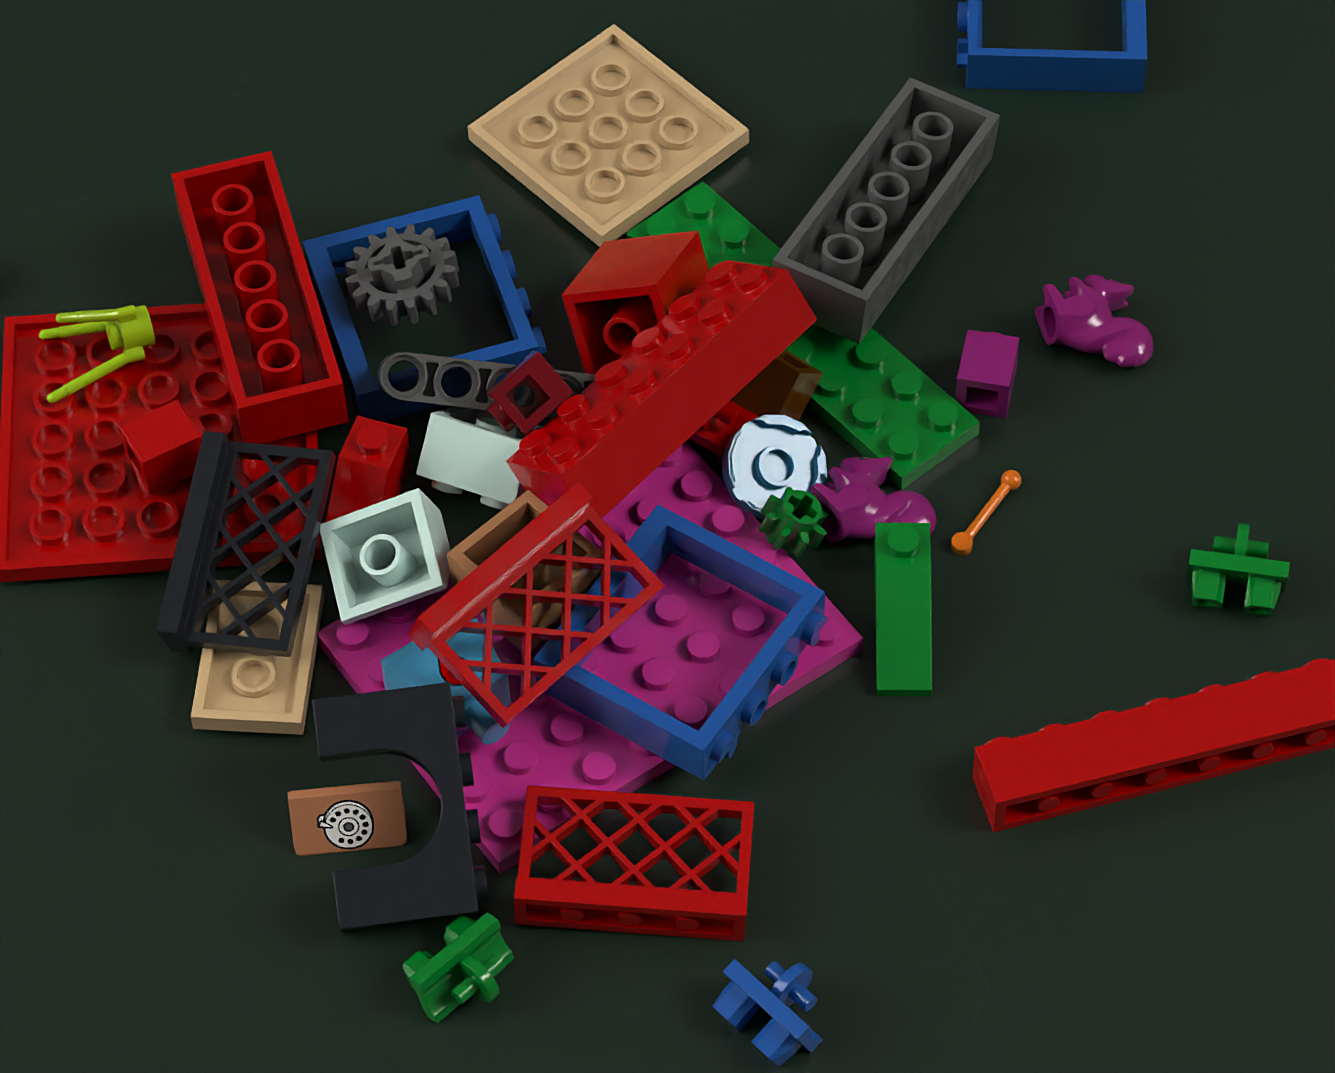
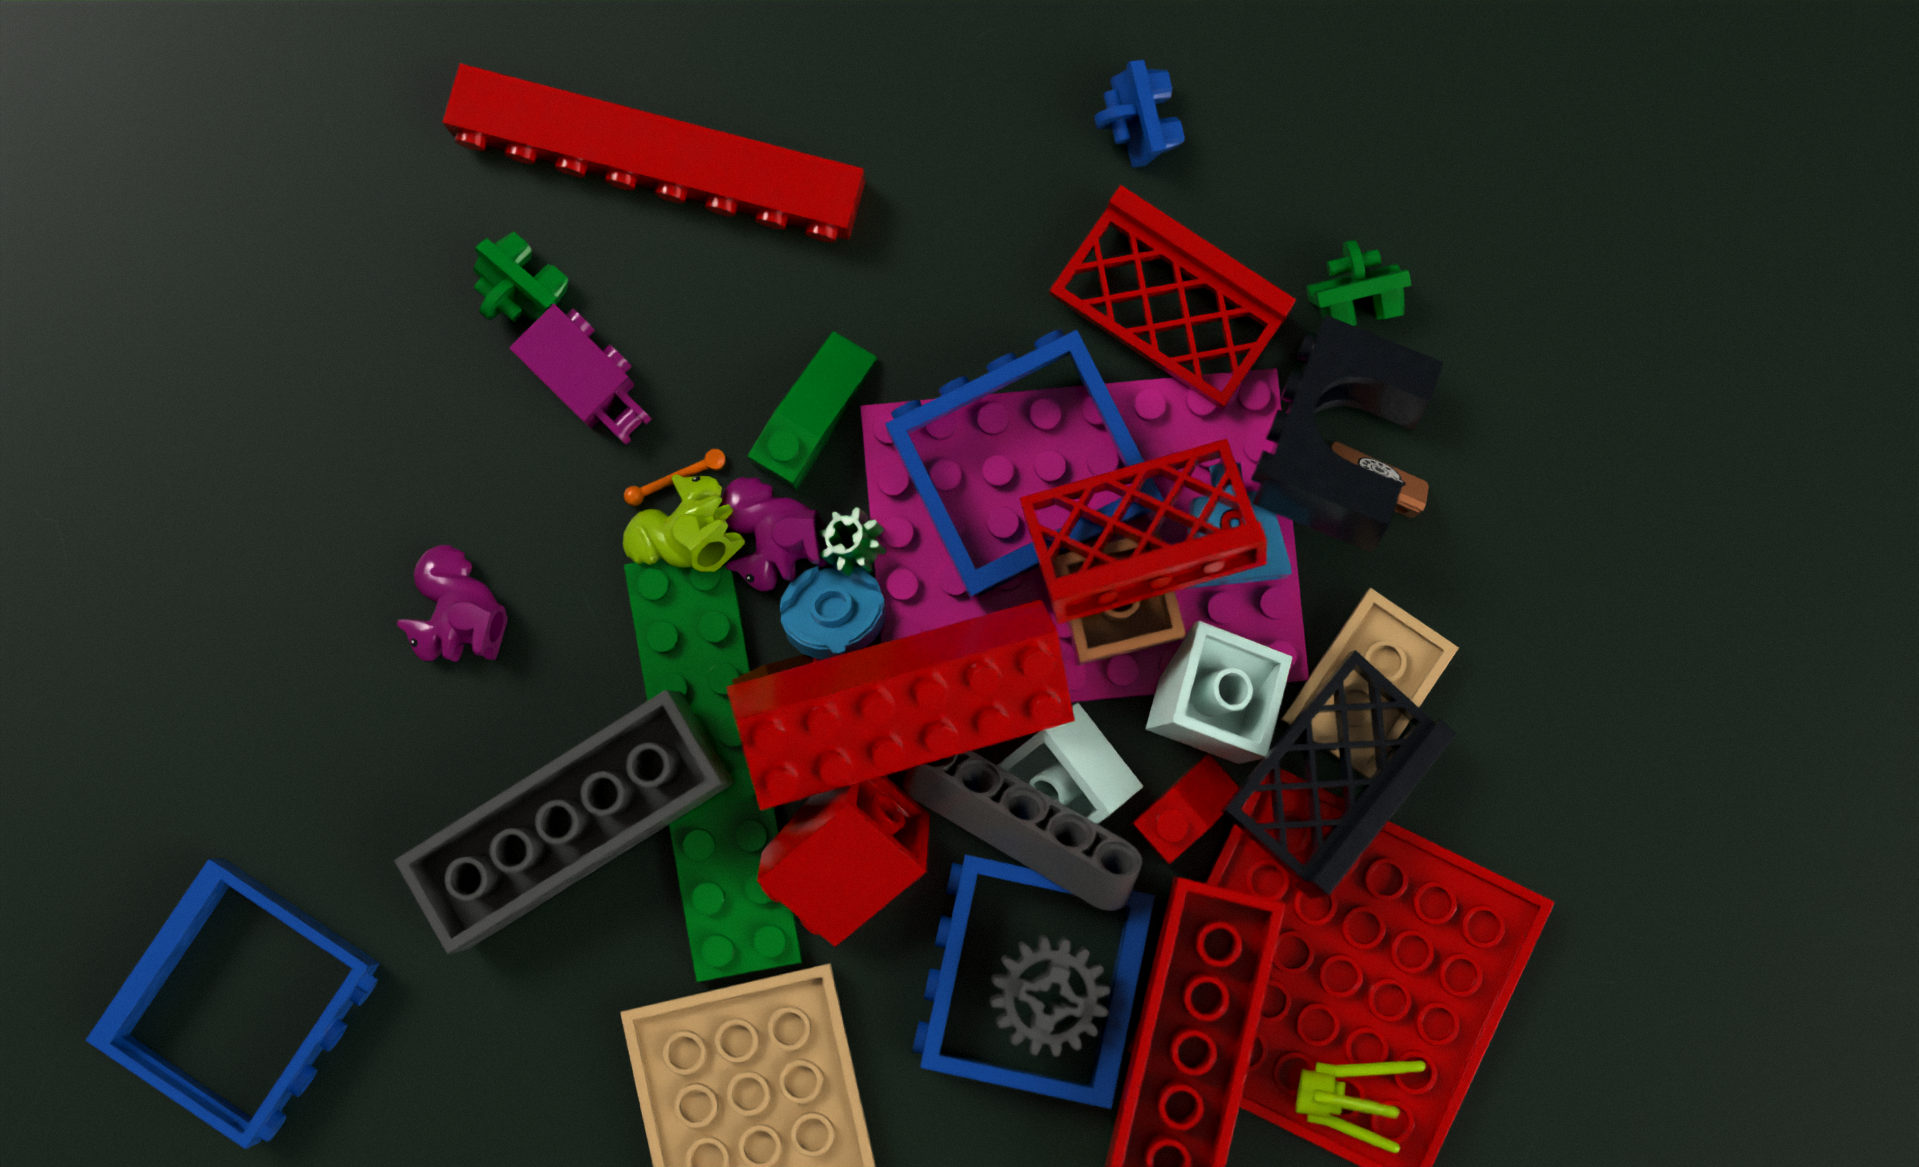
camera: 150 degrees left, 30 degrees up
(162, 445) = (1353, 934): red brick -> none
(547, 388) = (1017, 774): dark red brick -> none
(941, 461) = (691, 534): none -> lime animal
(987, 373) = (583, 608): magenta brick -> none
(1124, 533) = (579, 371): none -> magenta brick

